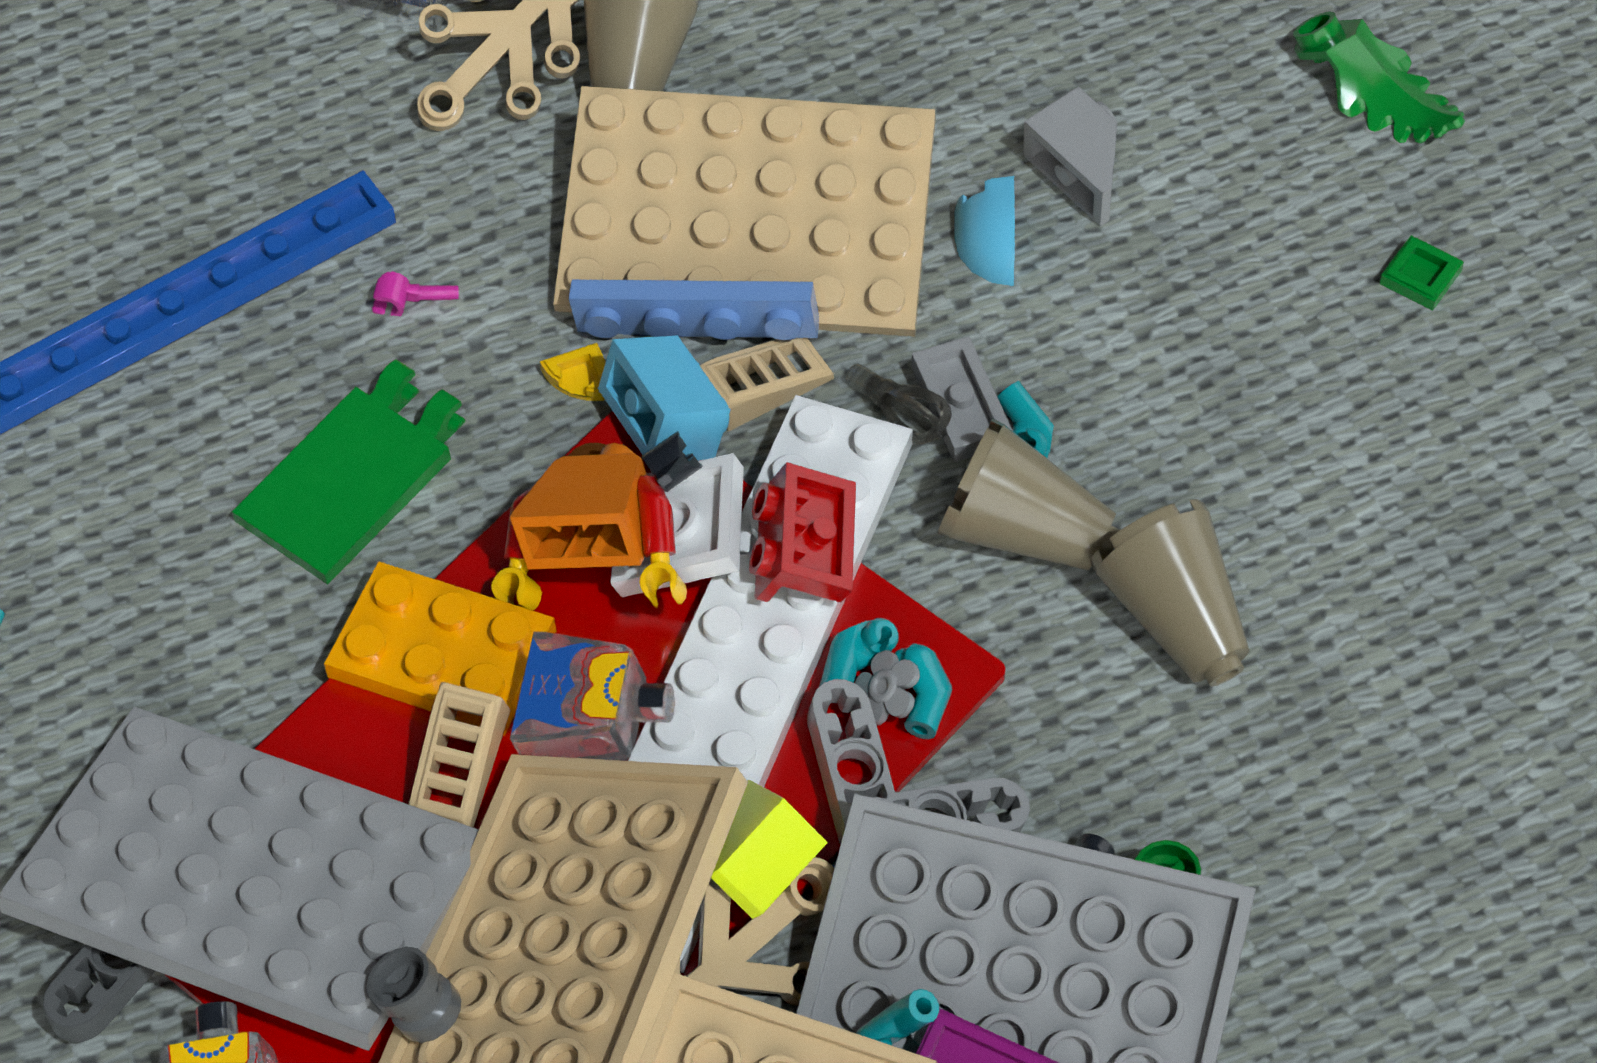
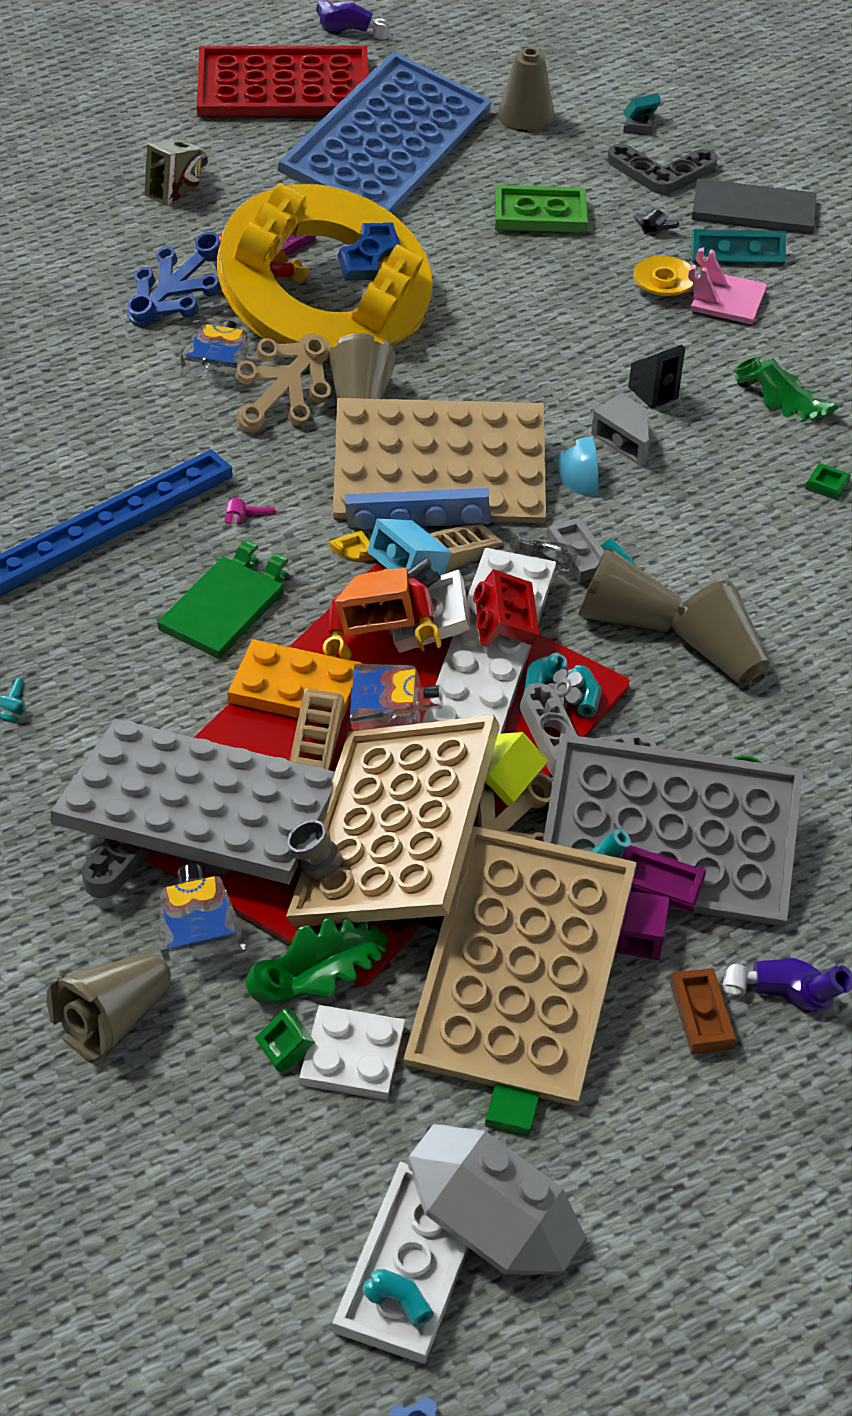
camera: 10 degrees left, 10 degrees down
(1151, 50) = (658, 377): none -> black slope

